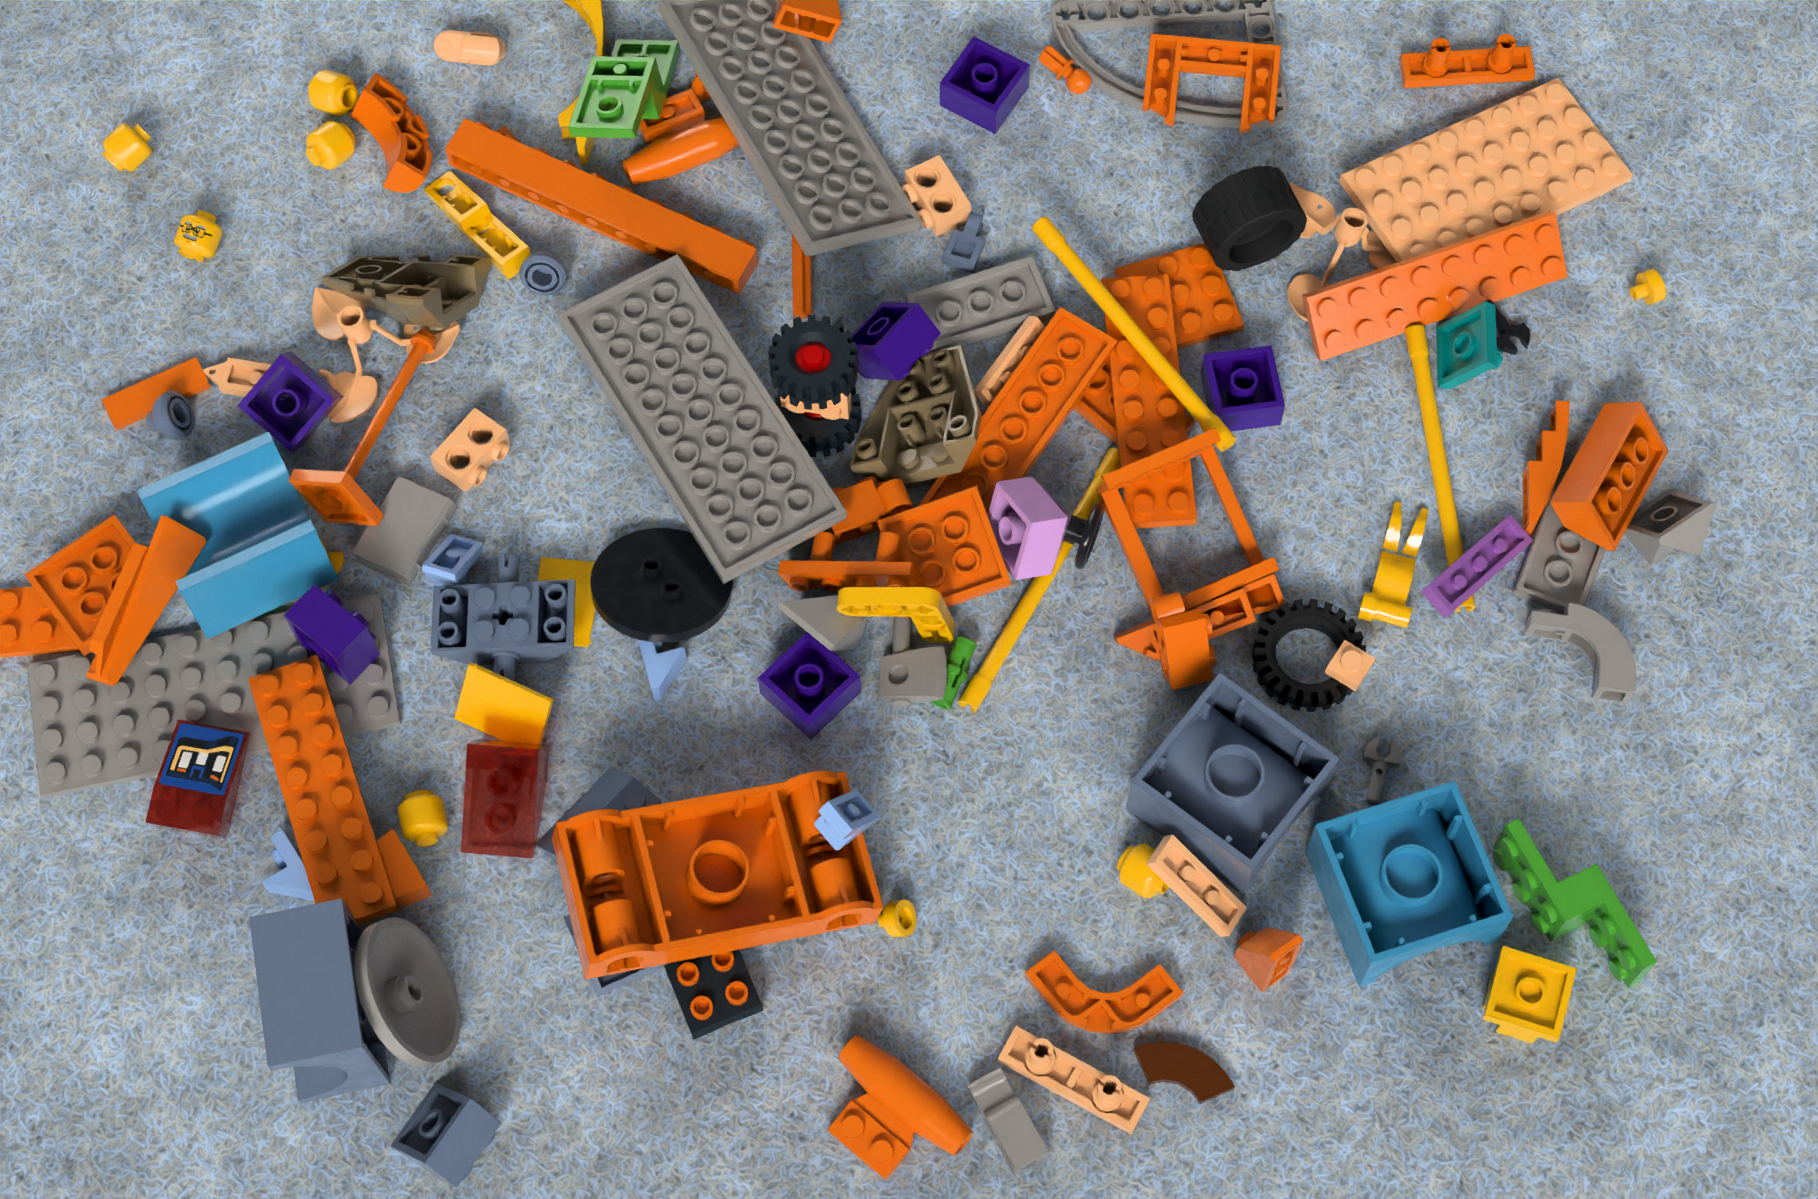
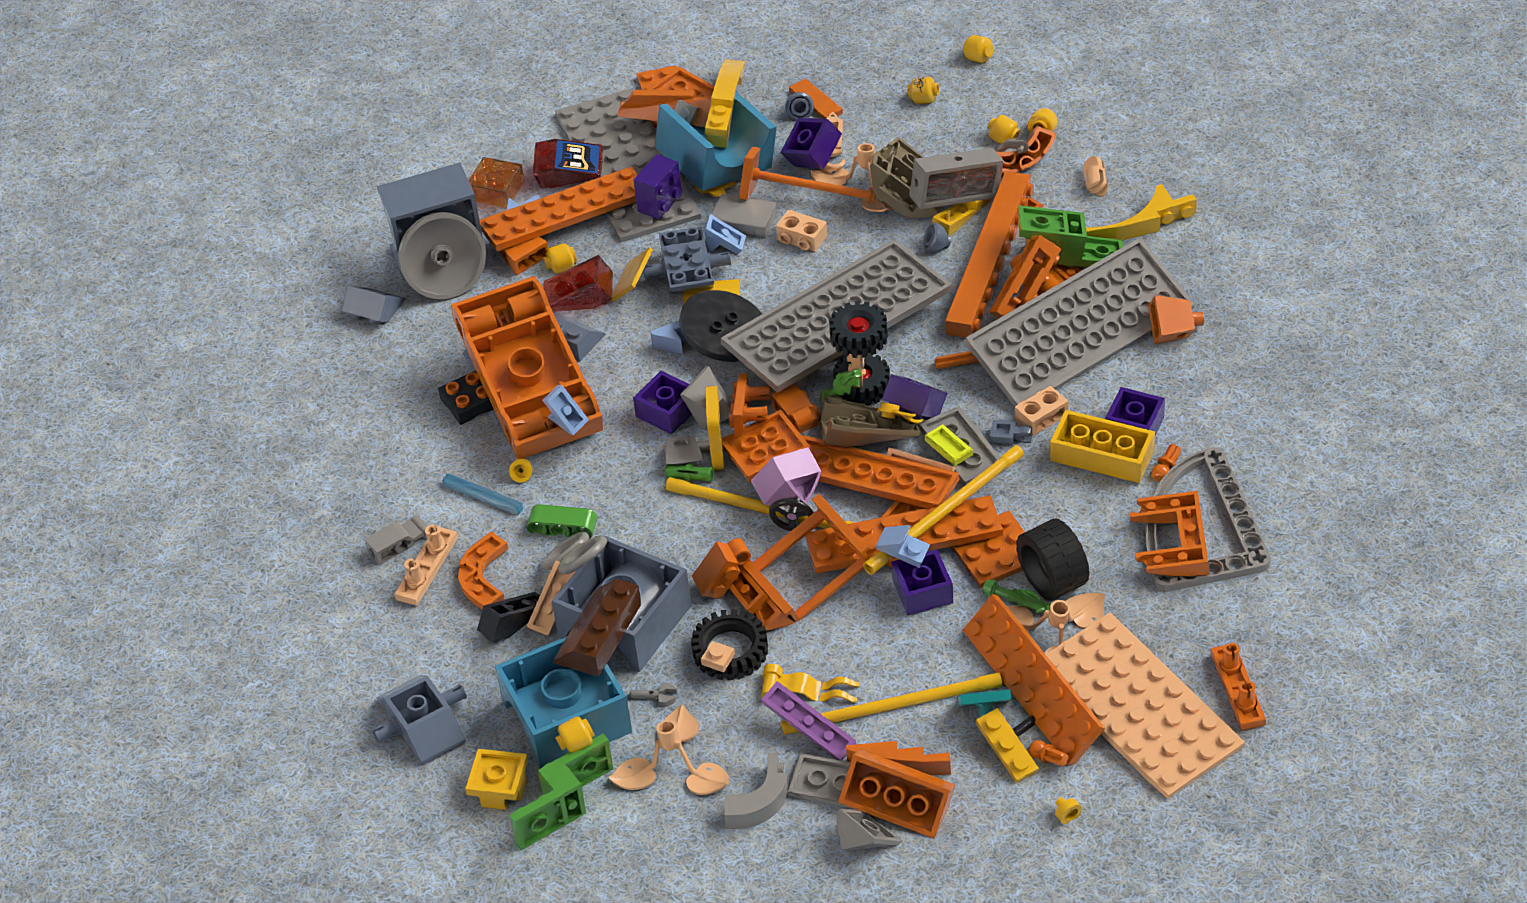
camera: 85 degrees right, 20 degrees down
(168, 568) = (686, 111): none -> light grey plate
(204, 905) = (496, 181): none -> clear orange brick
(223, 512) = (722, 102): none -> yellow slope
(387, 127) = (1020, 145): none -> light grey piece
(455, 209) = (956, 178): none -> brick
(701, 158) = (1037, 251): none -> orange brick
(851, 422) = (843, 383): none -> bright green piece
(896, 1106) = (400, 486): orange plate -> none
(930, 984) = (482, 494): none -> dark azure axle
(934, 367) = (890, 410): none -> yellow plate
(986, 317) = (948, 445): none -> neon yellow tile
(1021, 866) = (561, 520): none -> bright green beam
(1029, 132) = (1102, 446): none -> yellow brick
(1141, 835) = (574, 552): none -> light grey bar
(1185, 1067) = (439, 620): reddish brown tile -> none
(1204, 954) = (507, 616): none -> black slope
(1207, 389) = (899, 544): none -> light blue slope
(1267, 955) = (506, 637): orange slope -> none
(1277, 278) = (1023, 598): none -> bright green piece
(1331, 801) = (600, 627): none -> reddish brown slope
(1354, 1124) = (422, 717): none -> sand blue slope
(1447, 741) = (676, 728): none -> light nougat plant
(1513, 860) = (574, 734): none -> yellow head
(1538, 306) = (1047, 753): none -> orange axle
(1540, 336) = (1006, 745): none -> yellow plate

